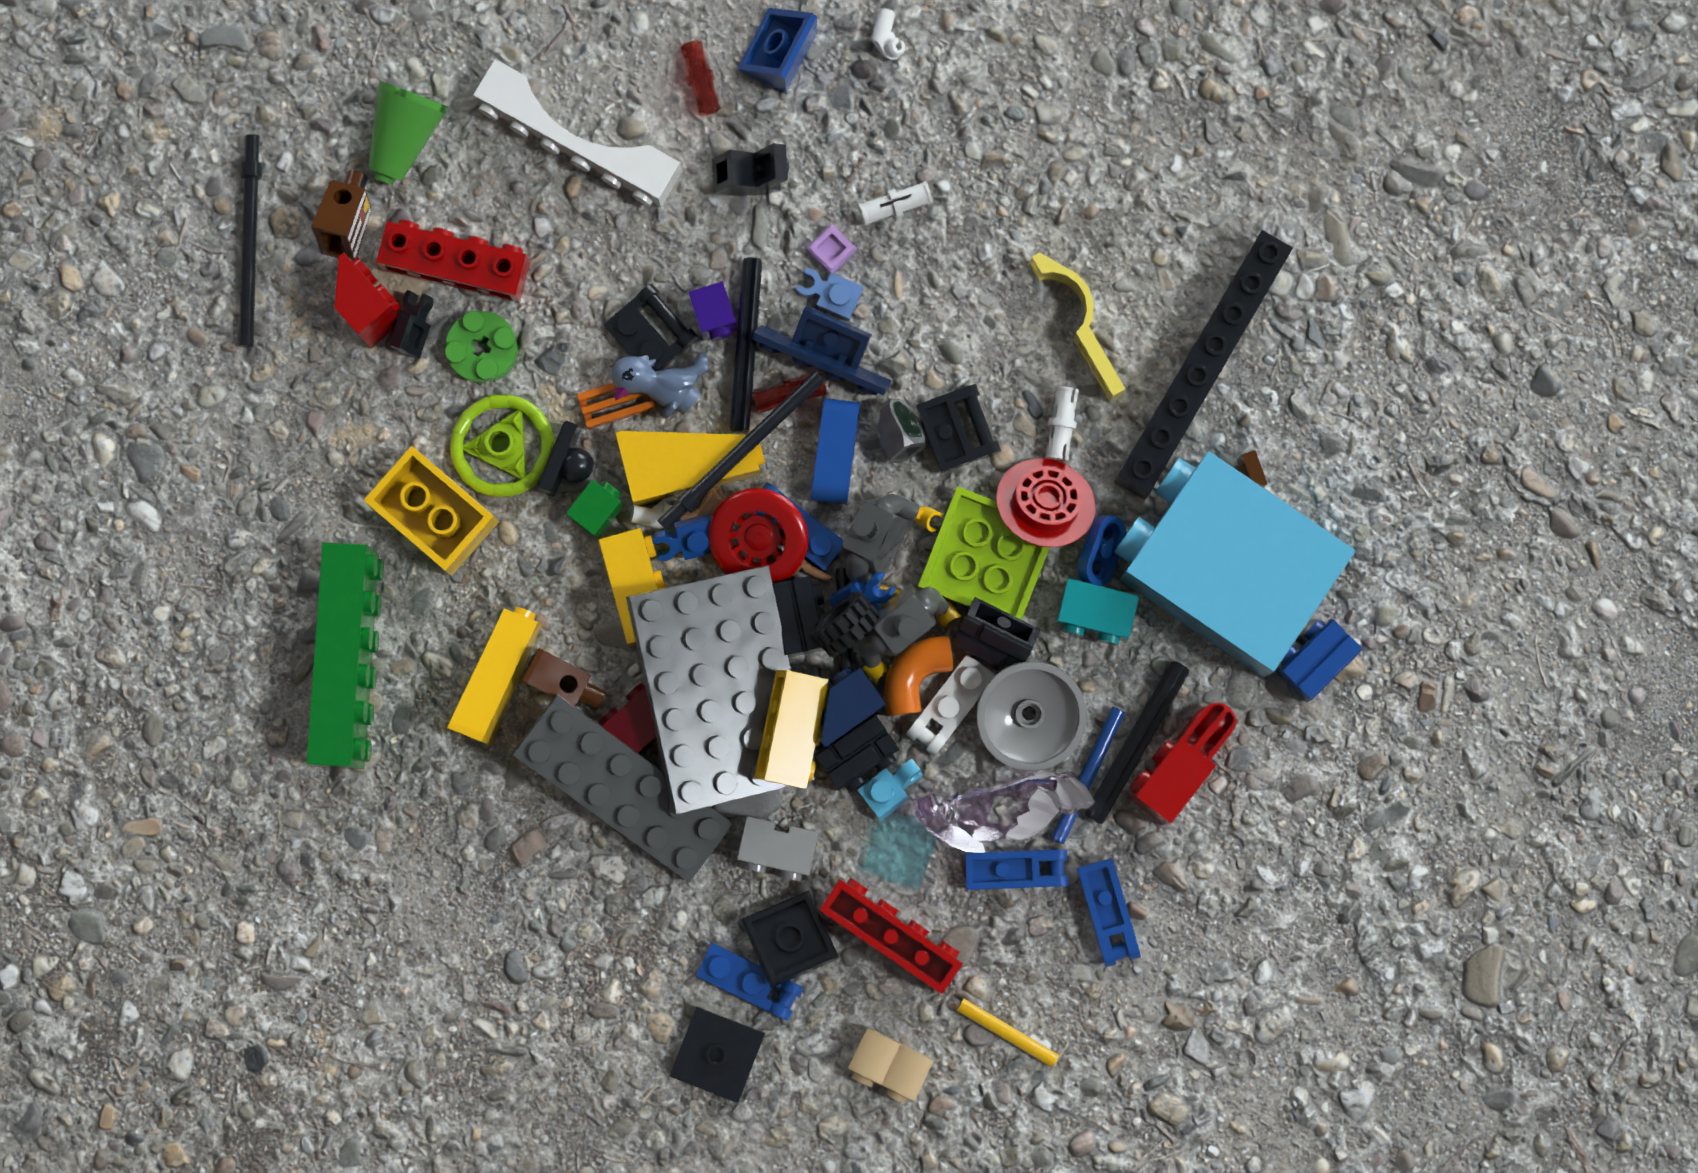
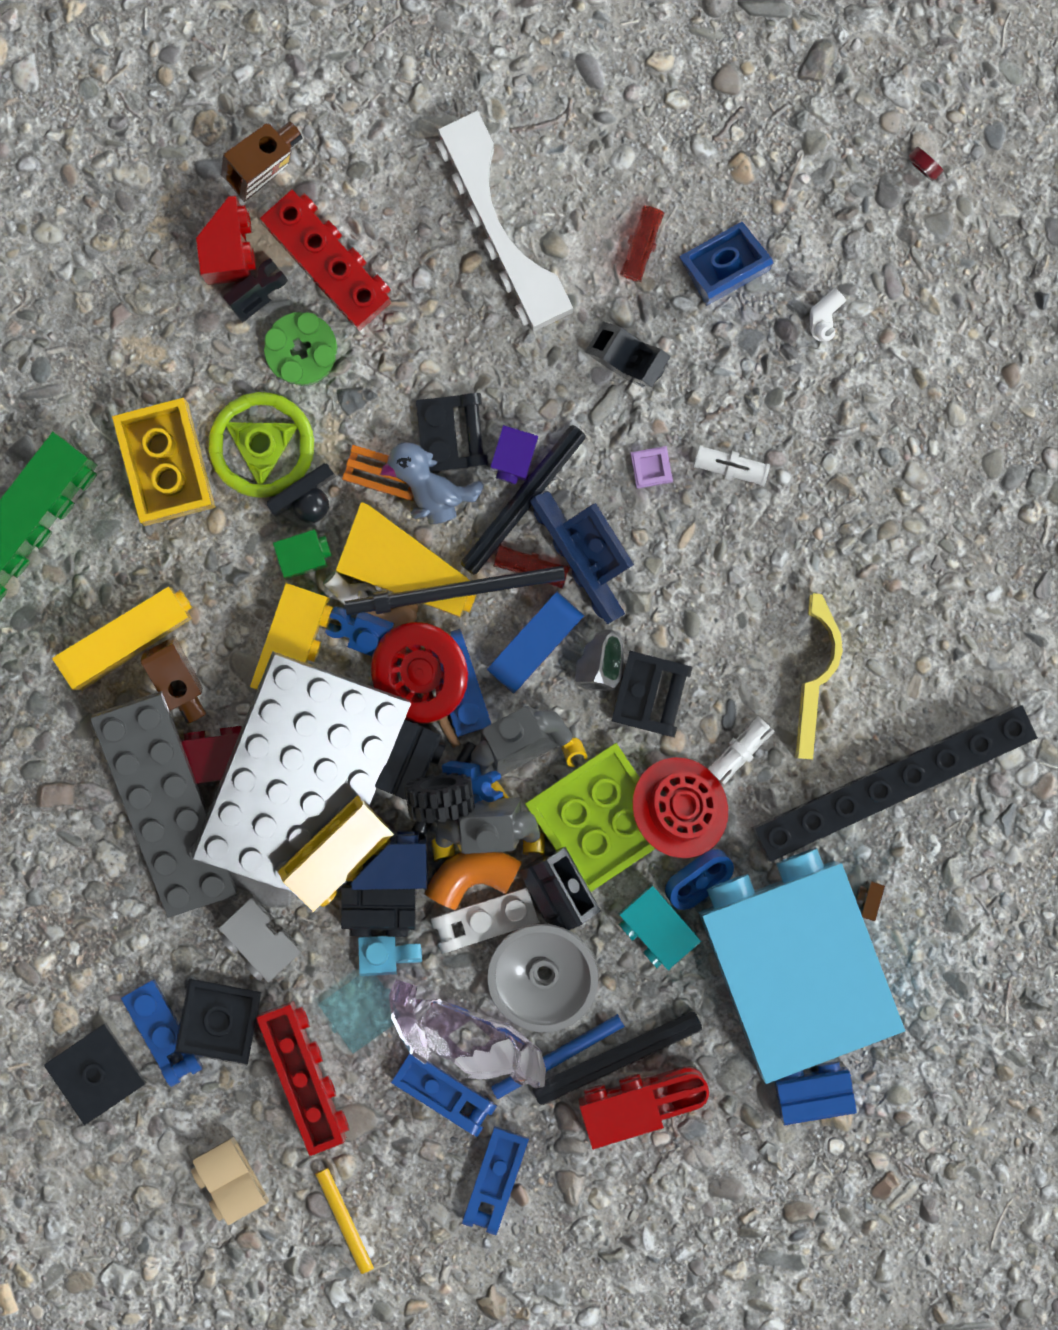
camera: 30 degrees right, 5 degrees up
(251, 172) = (208, 65): black bar -> none
(400, 130) = (357, 116): bright green cone -> none
(835, 296) = (628, 509): medium blue plate -> none

